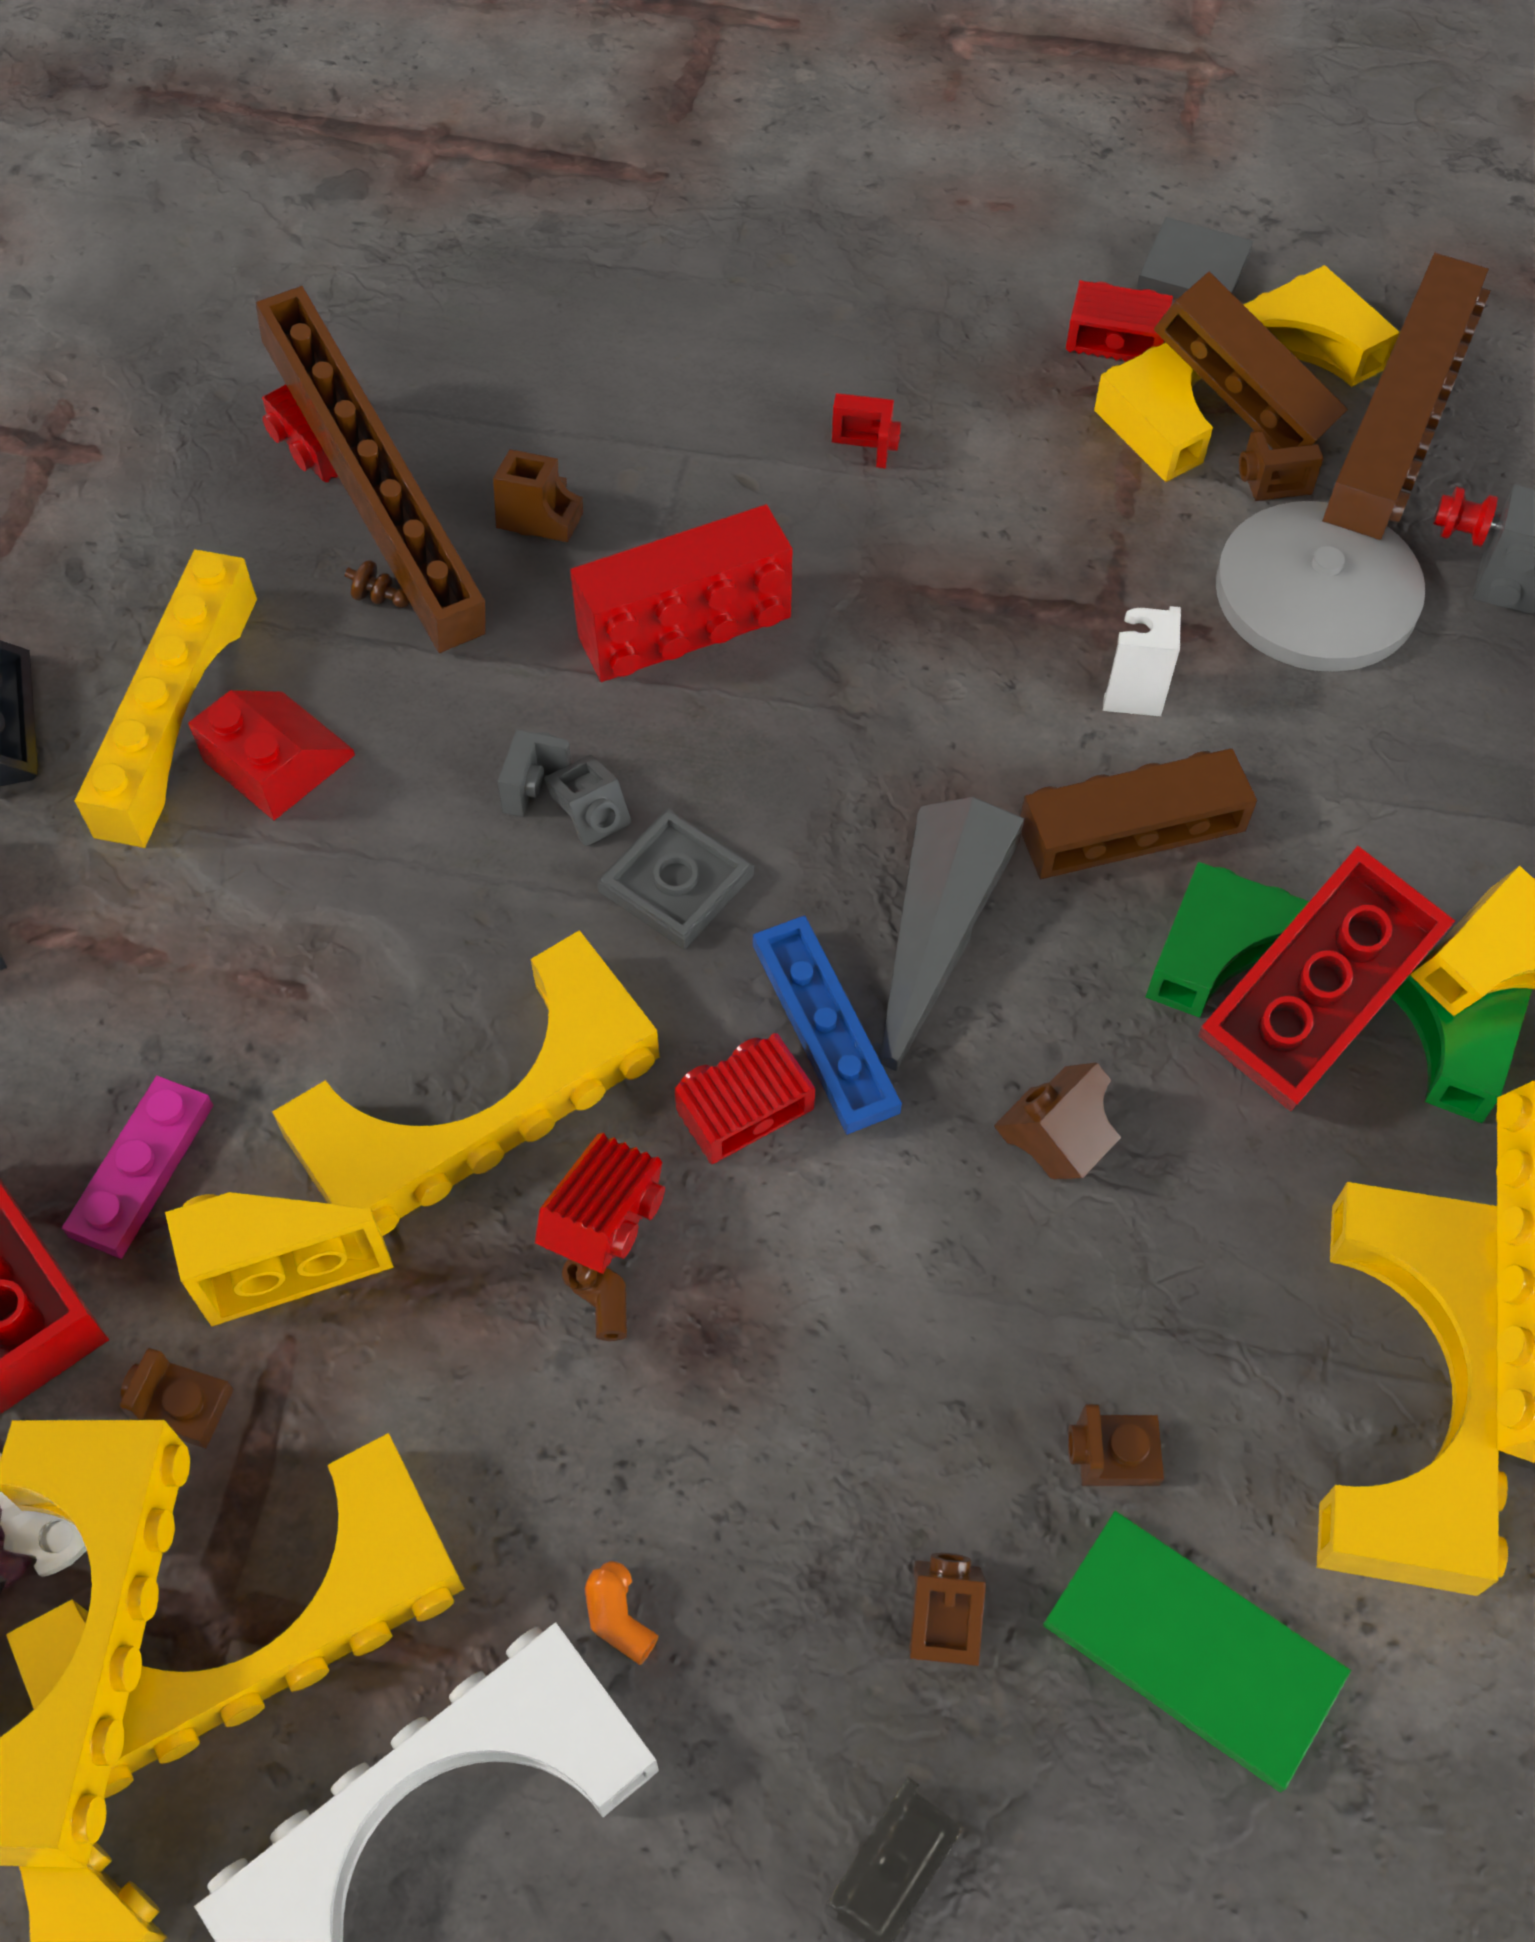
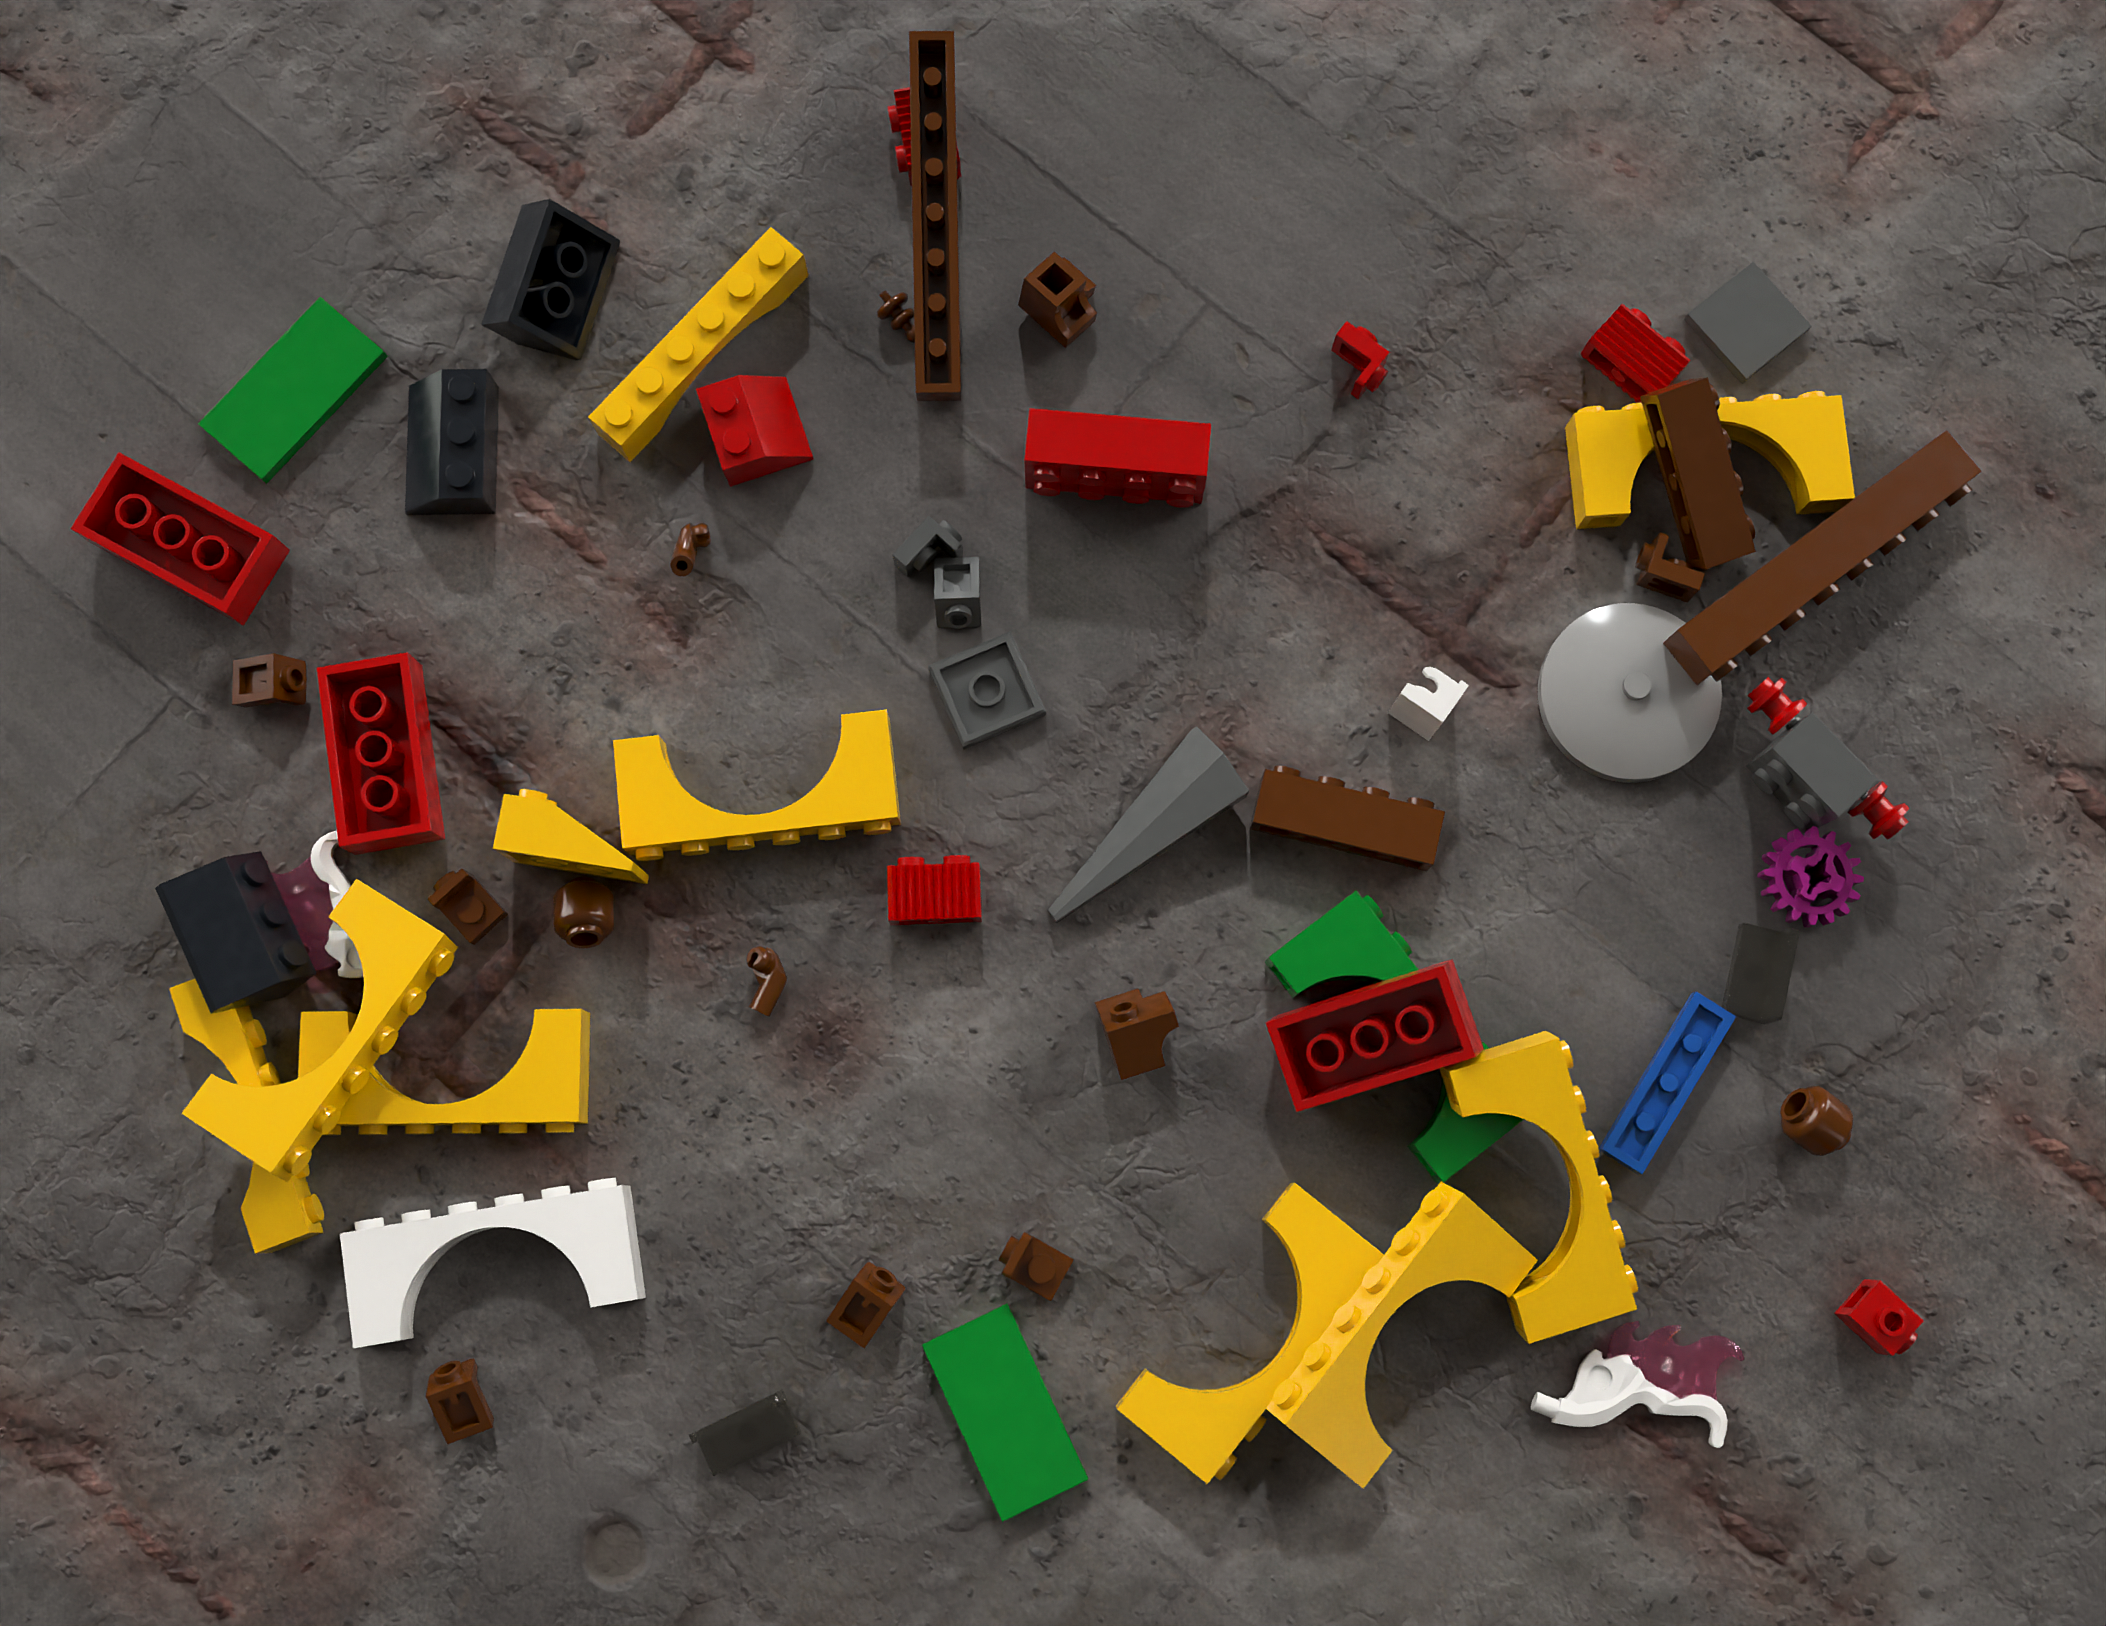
camera: 30 degrees right, 20 degrees up
(138, 1167) = (516, 722): dark pink plate -> none
(257, 886) = (686, 547): none -> reddish brown arm
(331, 1328) = (583, 912): none -> reddish brown head
(600, 1204) = (795, 922): red brick -> none
(609, 1612) = (663, 1189): orange arm -> none
(826, 1025) = (1023, 865): blue plate -> none

